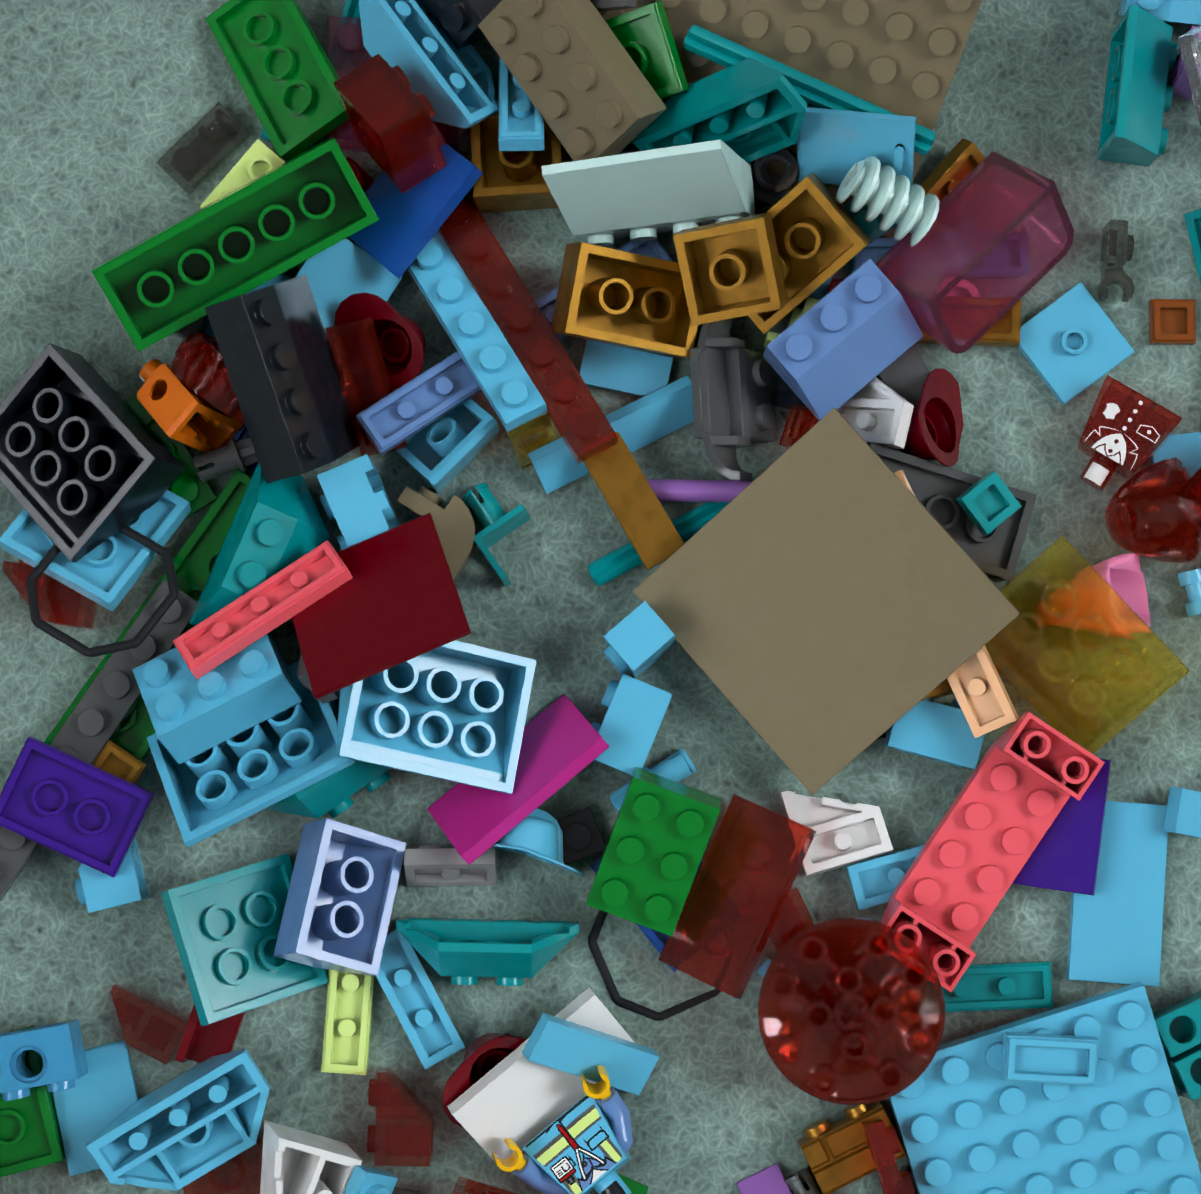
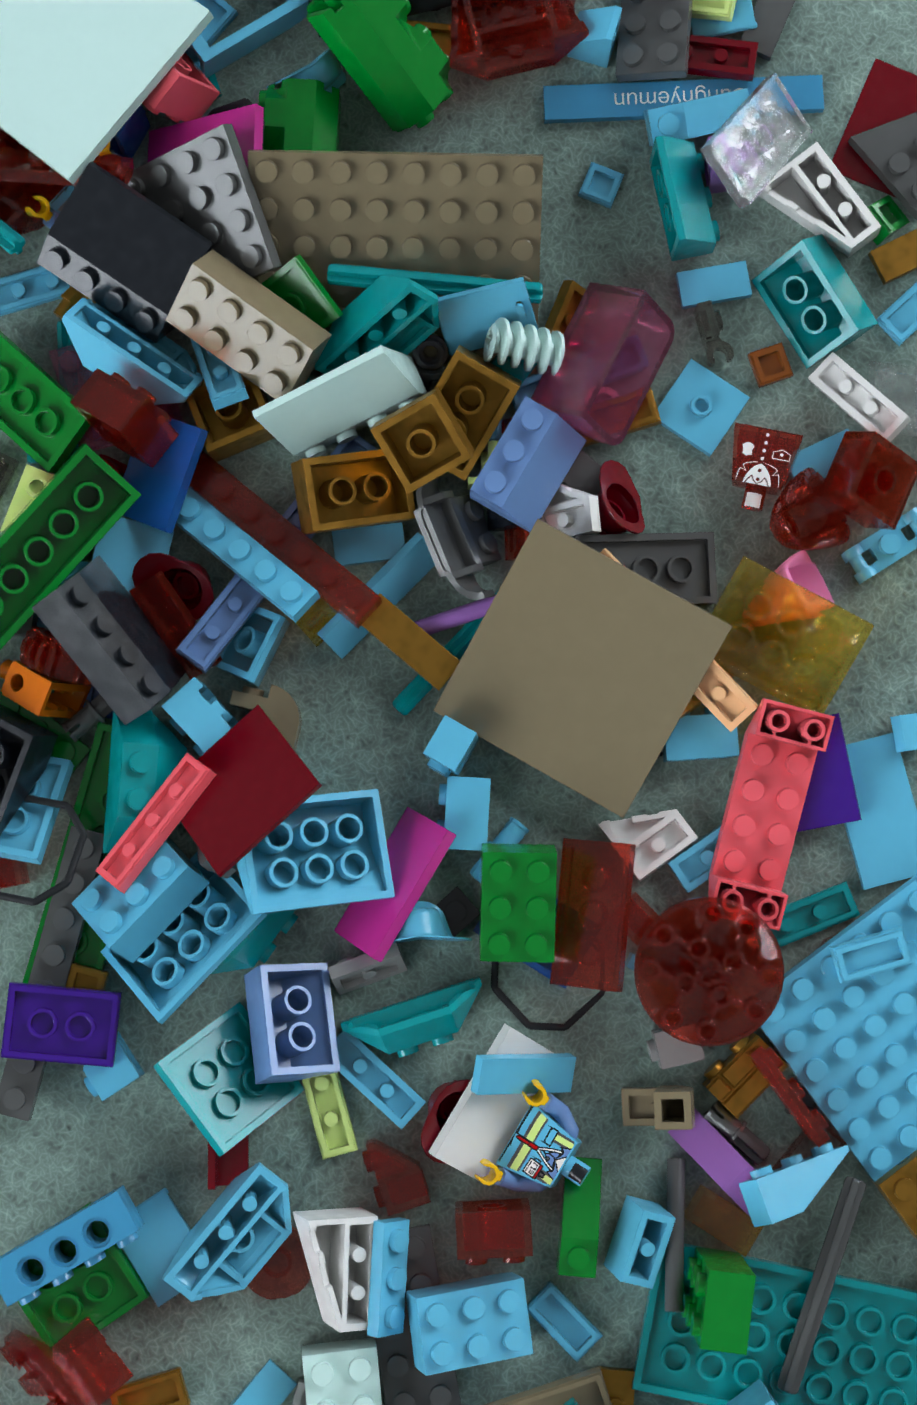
camera: 20 degrees left, 0 degrees up
(147, 1025) = (177, 1171): clear red tile -> none
(495, 522) = (310, 694): teal bracket -> none
(737, 1149) = (663, 1107): none -> dark tan brick
(774, 1090) = (671, 1051): none -> light grey brick
(988, 502) = (679, 550): teal plate -> none
(1045, 41) = (601, 185): none -> medium azure tile
(1138, 202) = (714, 283): none -> medium azure tile

